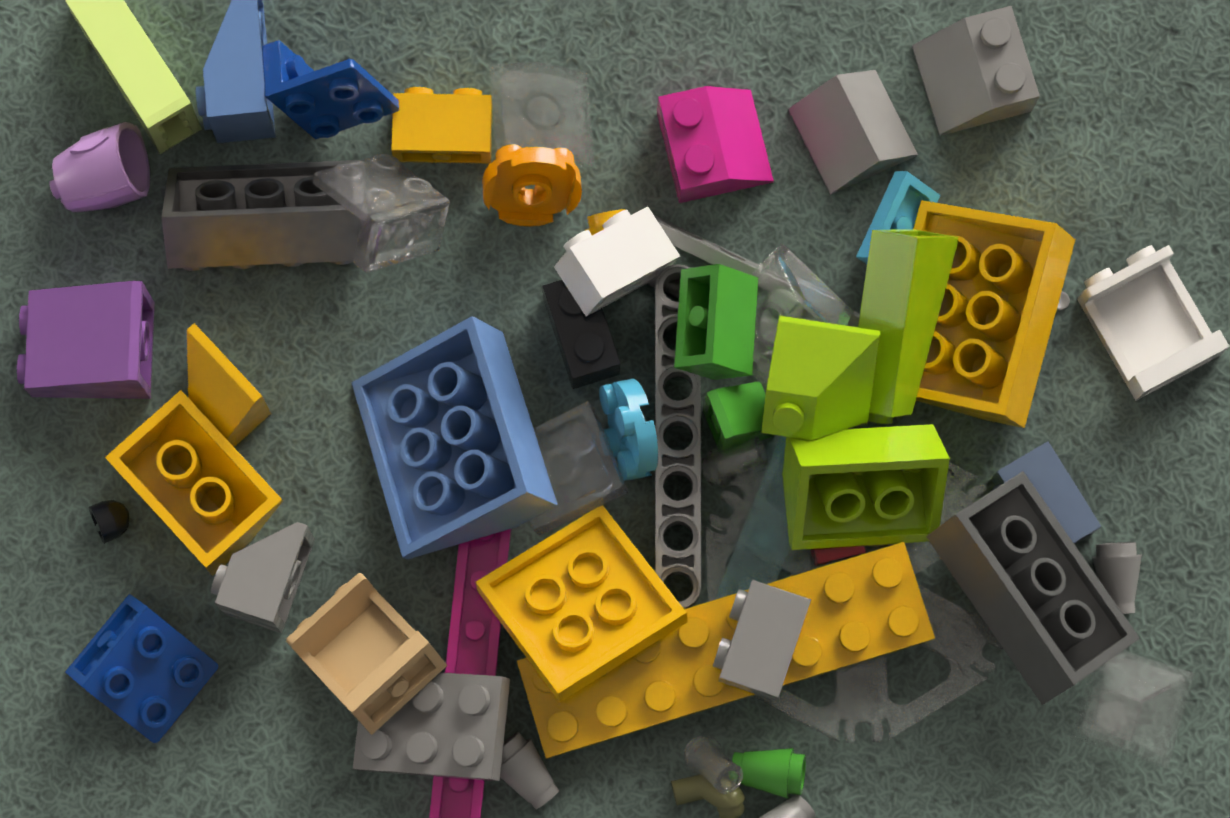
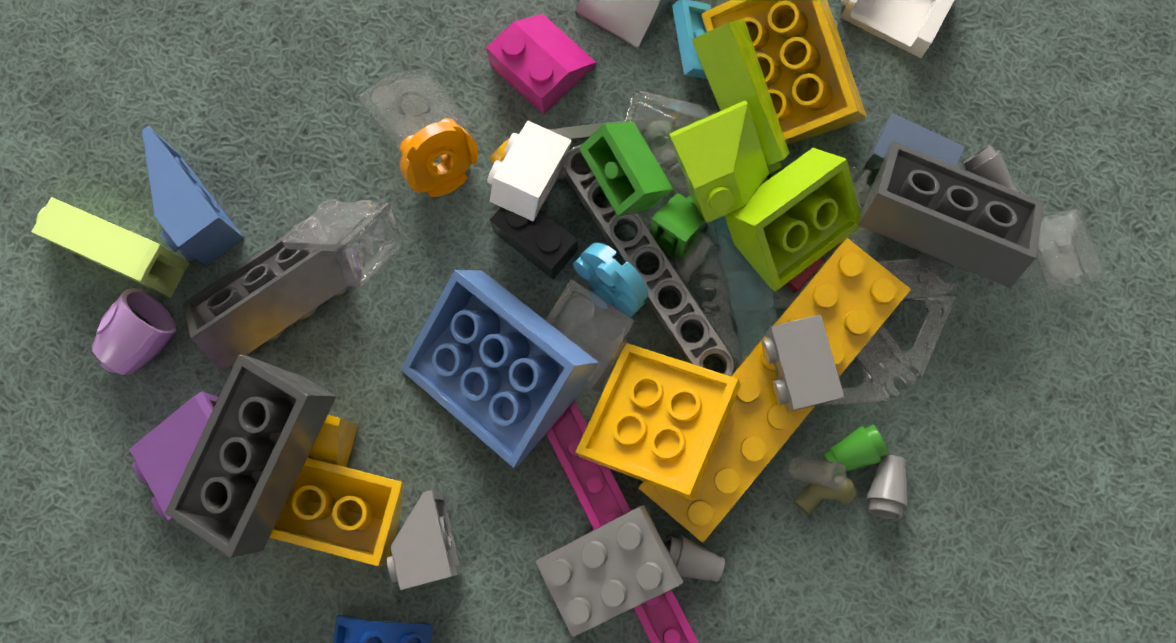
camera: 25 degrees left, 0 degrees up
(111, 519) = (290, 571): black hinge -> none
(153, 377) = (249, 456): none -> dark grey slope
(326, 98) = (256, 184): blue bracket -> none
(366, 653) = (531, 552): tan panel -> none
(442, 126) = (352, 159): yellow brick -> none

